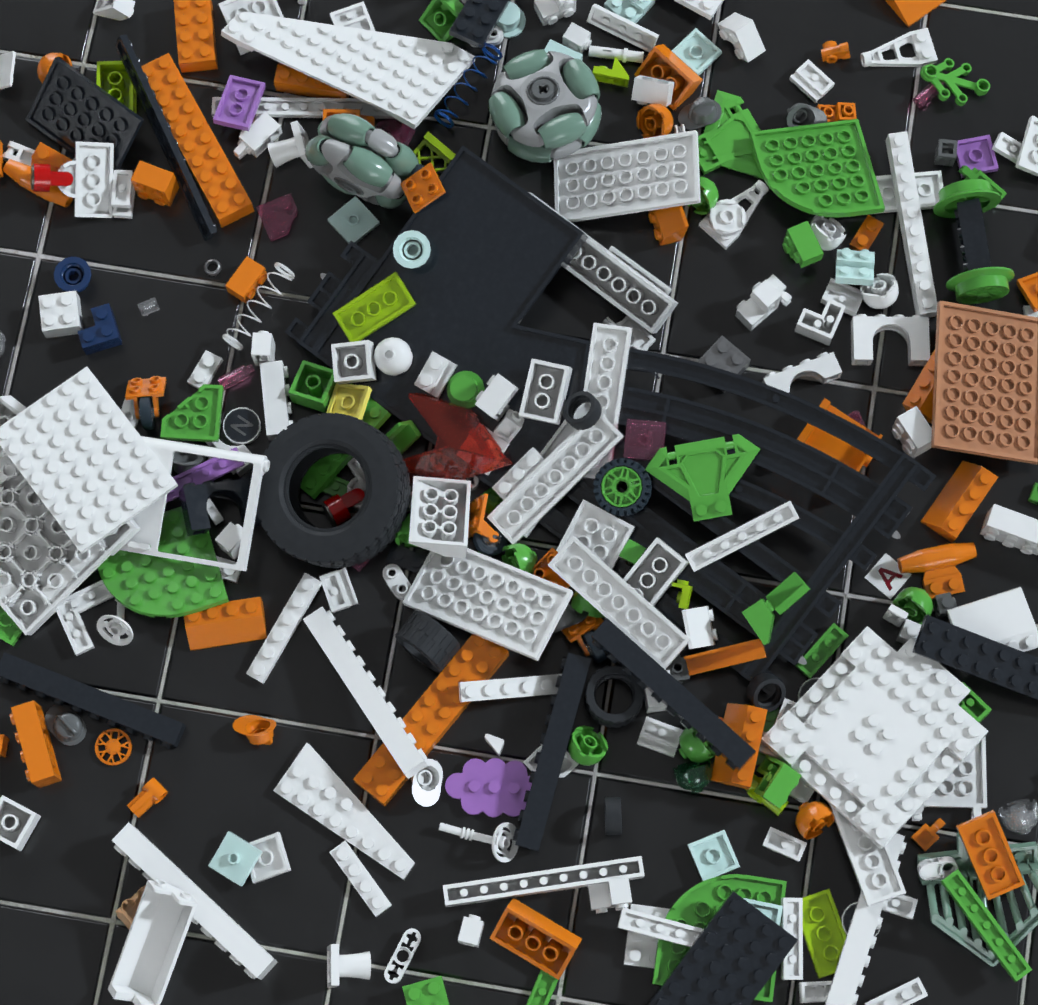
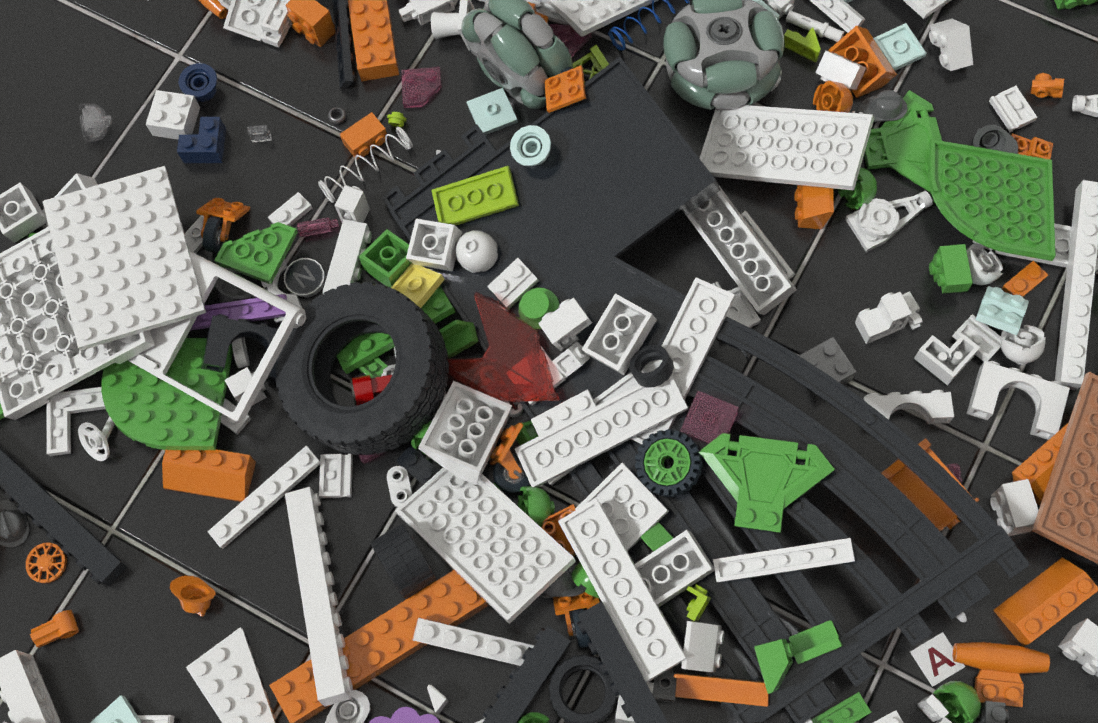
camera: 25 degrees right, 5 degrees down
(270, 254) = (396, 119): none -> lime plate

